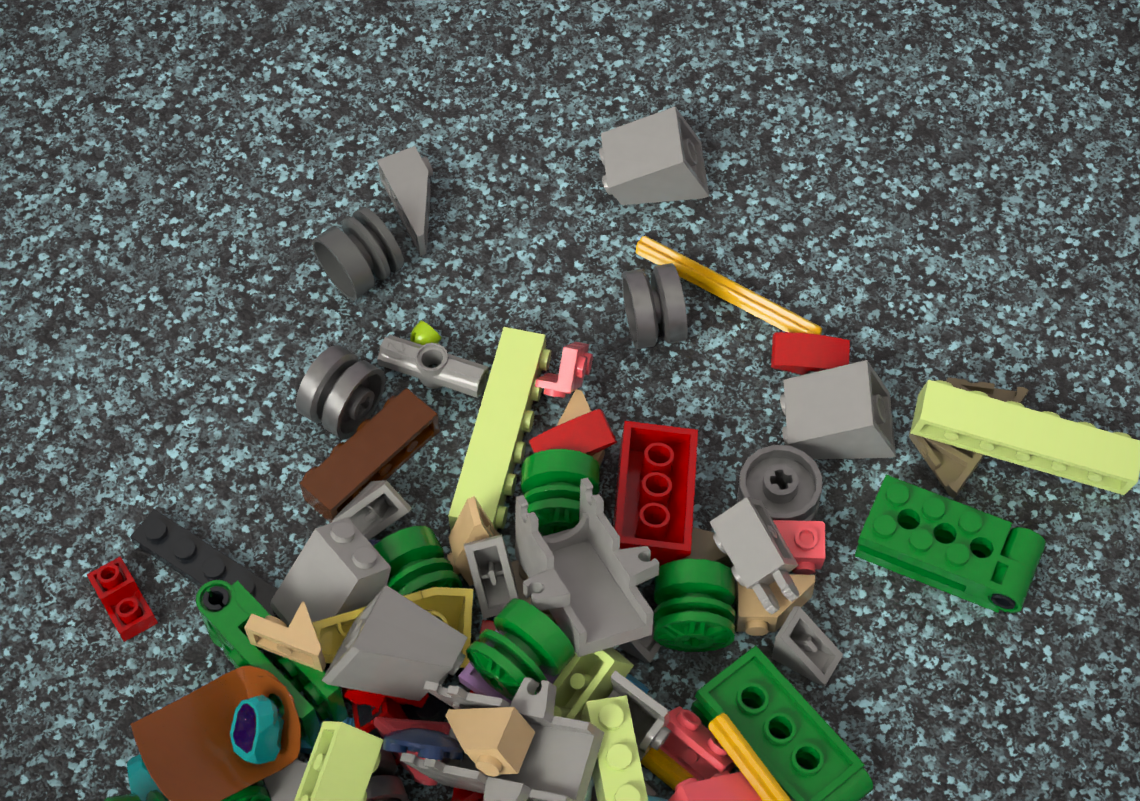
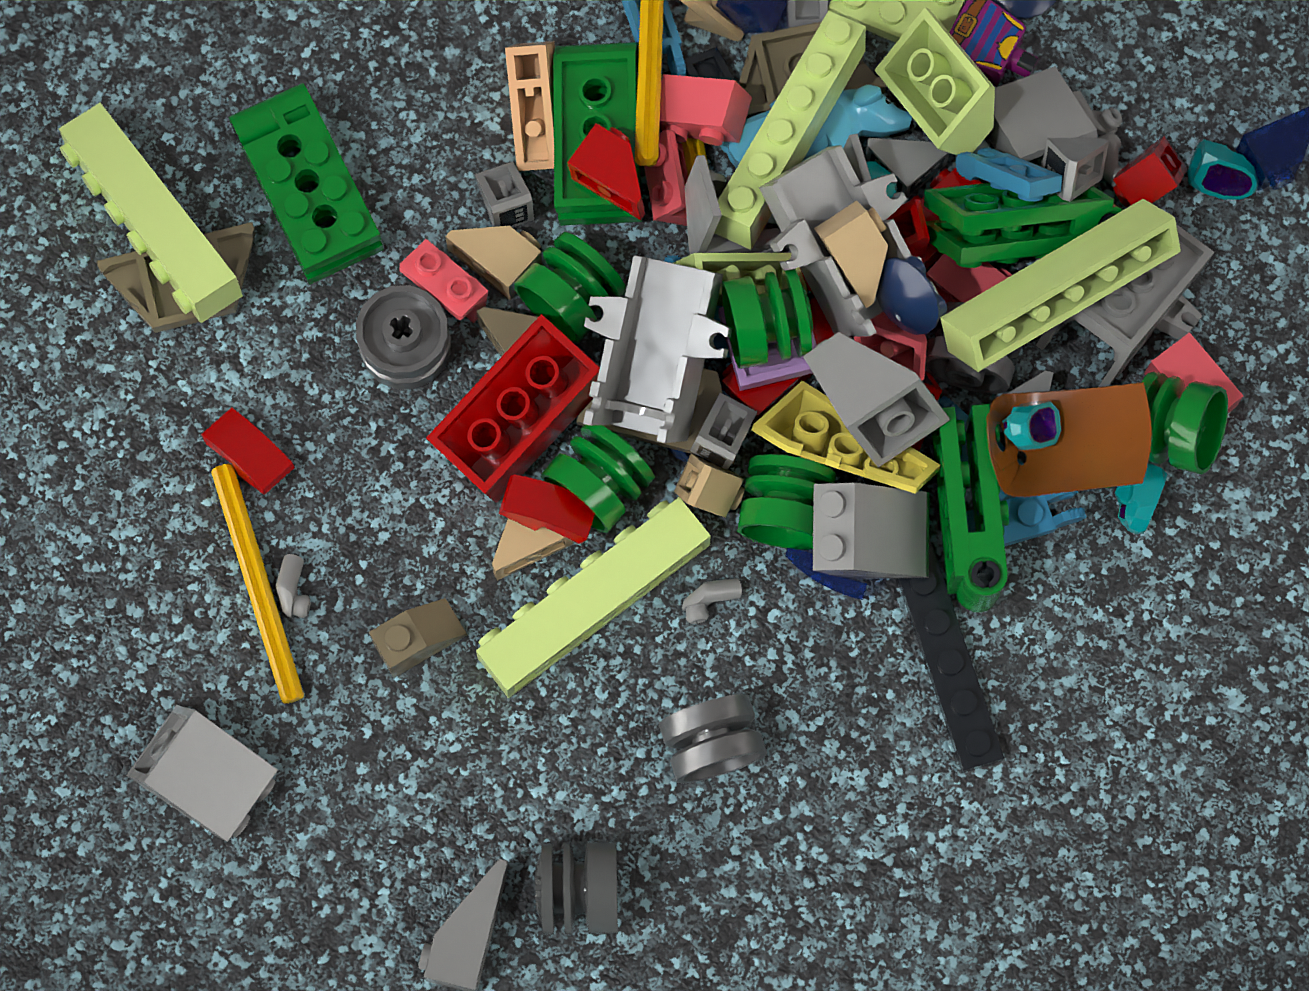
camera: 145 degrees left, 15 degrees up
(122, 599) = (1050, 703): red slope -> none
(293, 642) = (949, 460): tan slope -> none
(370, 454) = (729, 666): reddish brown brick -> none
(375, 508) = (771, 602): light grey slope -> none
(424, 334) = (581, 758): lime hinge -> none
(425, 485) = (706, 594): none -> light grey arm
(451, 373) = (611, 738): light grey piece -> none
(574, 365) = (493, 592): coral bracket -> none
(598, 321) = (416, 635): none -> dark tan slope
(654, 306) = (351, 596): flat silver wheel -> none
(706, 298) = (287, 590): none -> light grey arm
(733, 688) = (608, 168): none -> red slope
(756, 551) = (485, 274): light grey hinge -> none
(839, 413) = (285, 369): light grey slope -> none
(867, 736) = (532, 103): none -> light nougat slope

